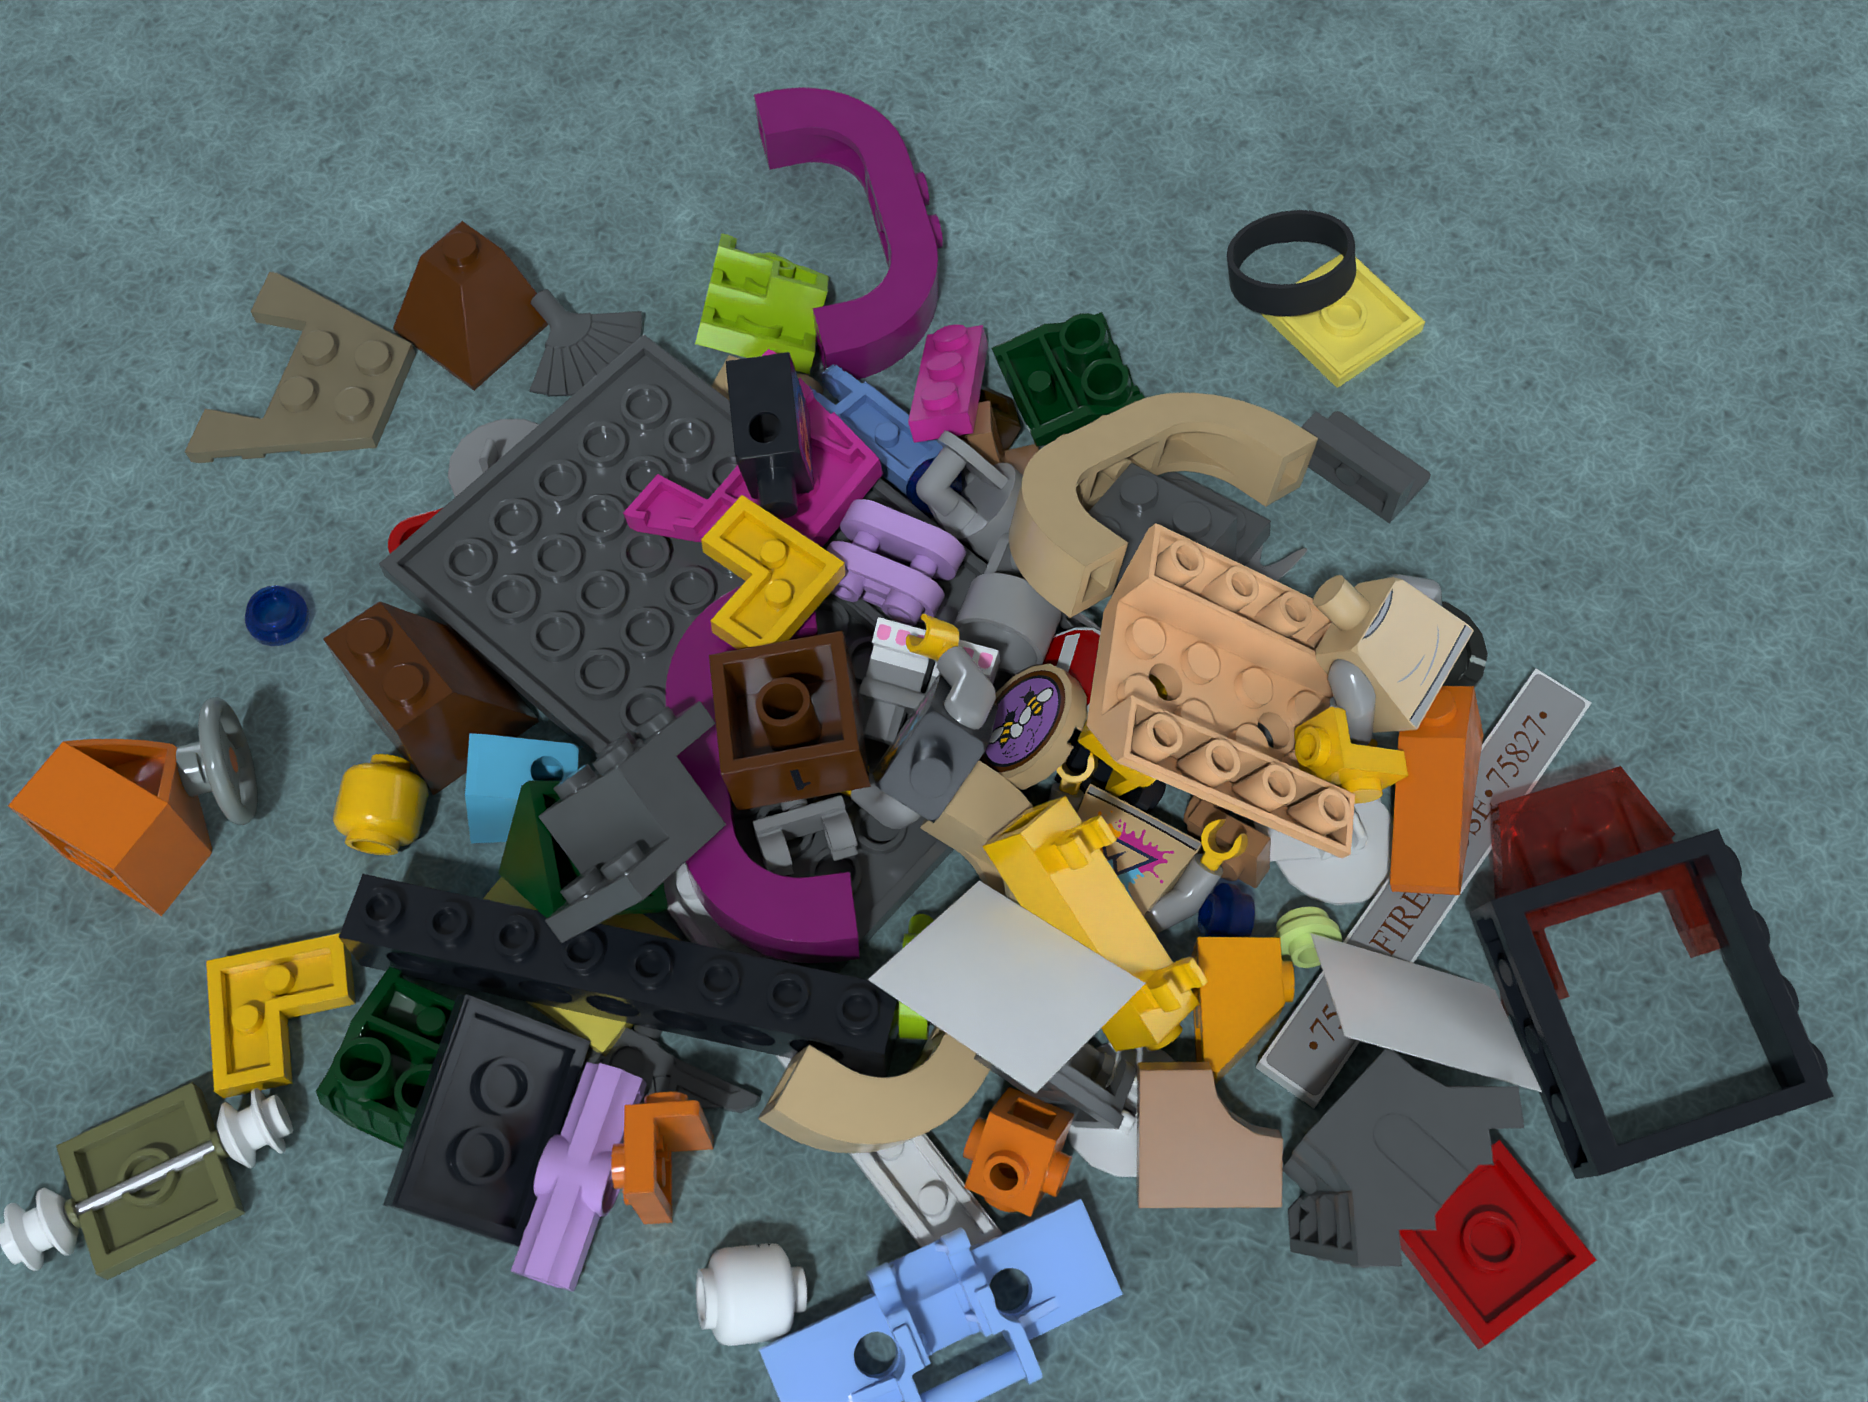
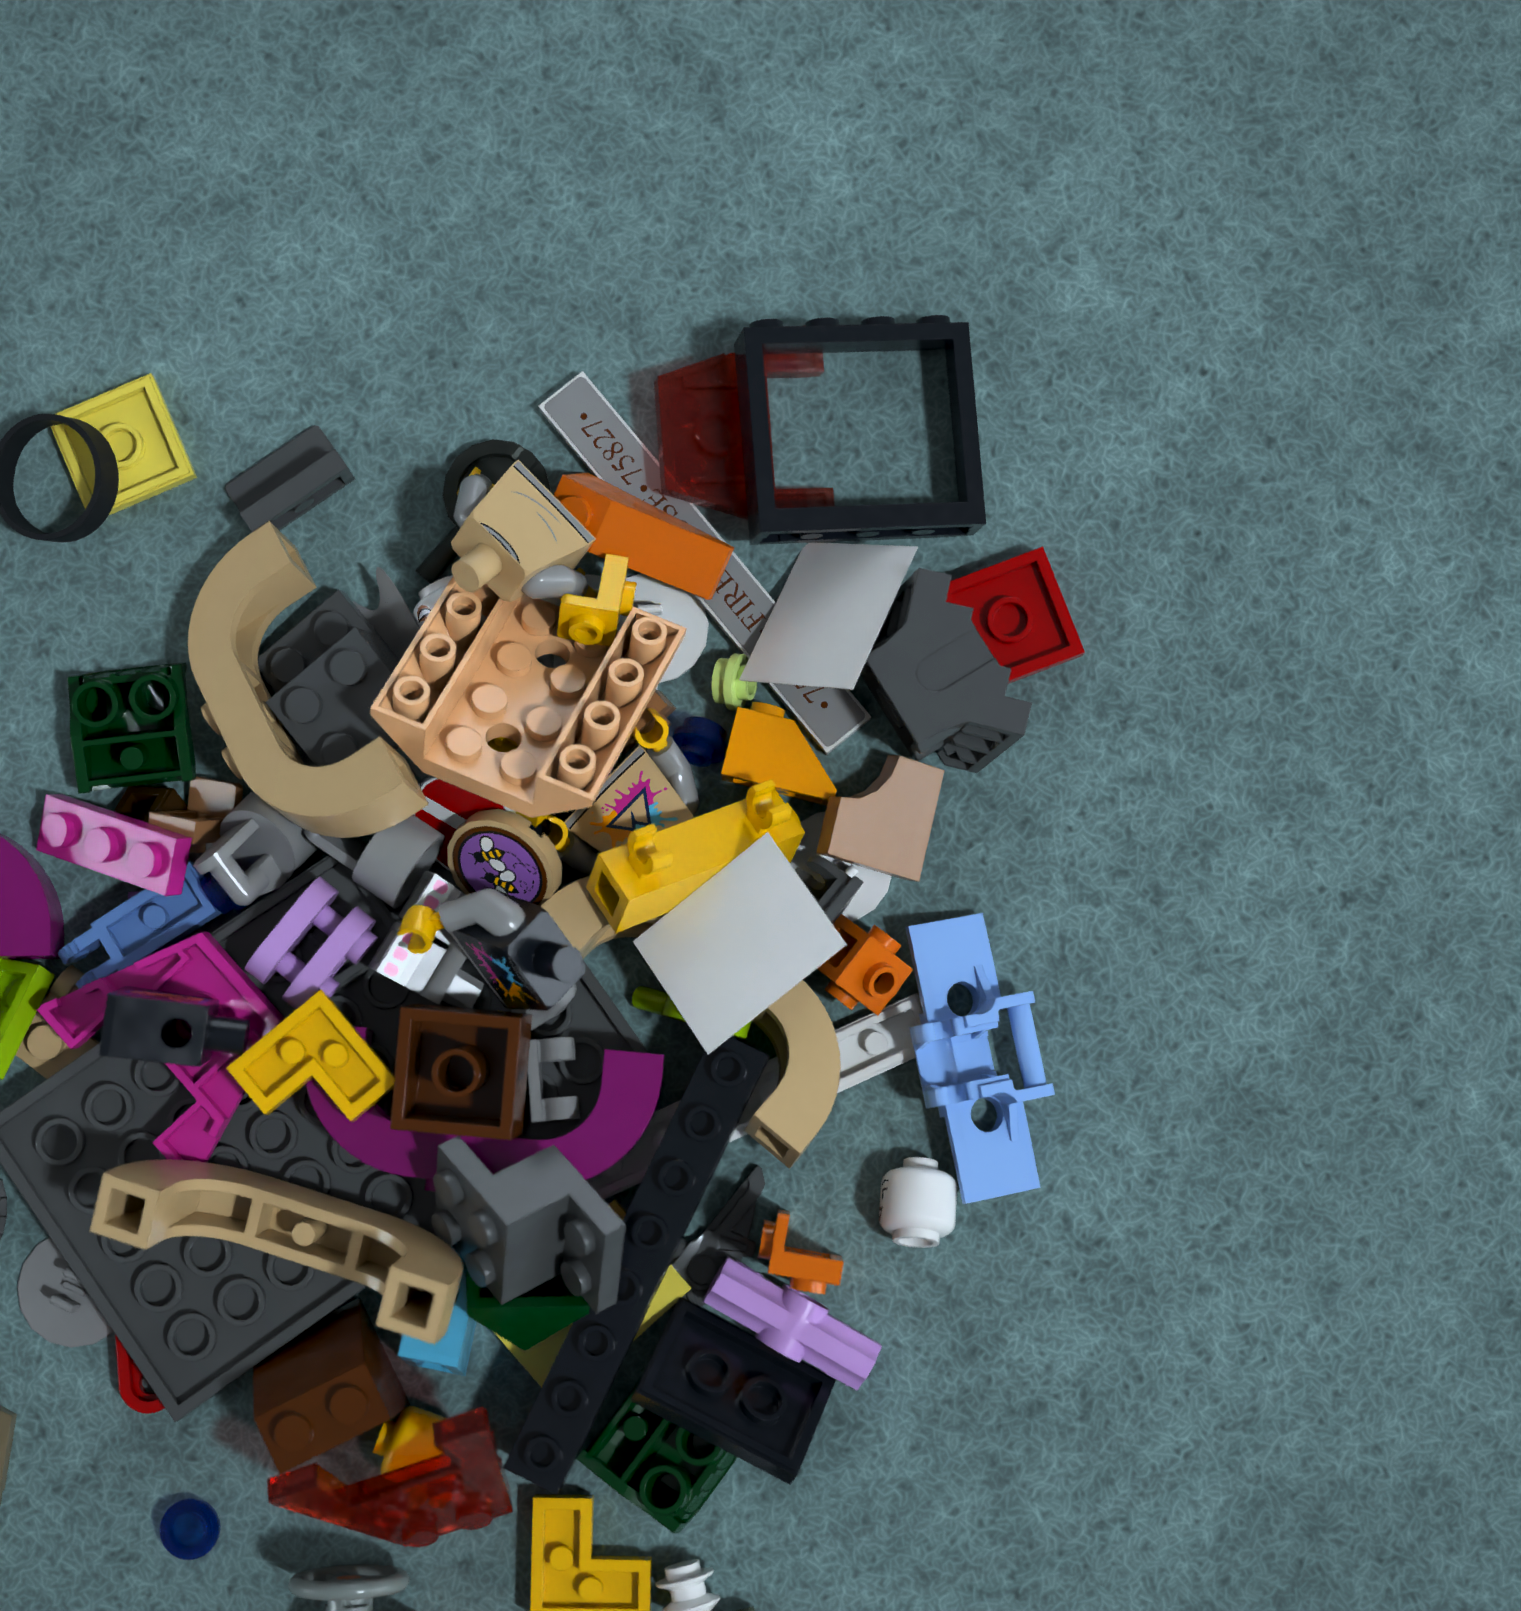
camera: 75 degrees left, 20 degrees up
(322, 807) = (415, 1501): none -> clear red wing
(577, 692) = (399, 1260): none -> tan arch

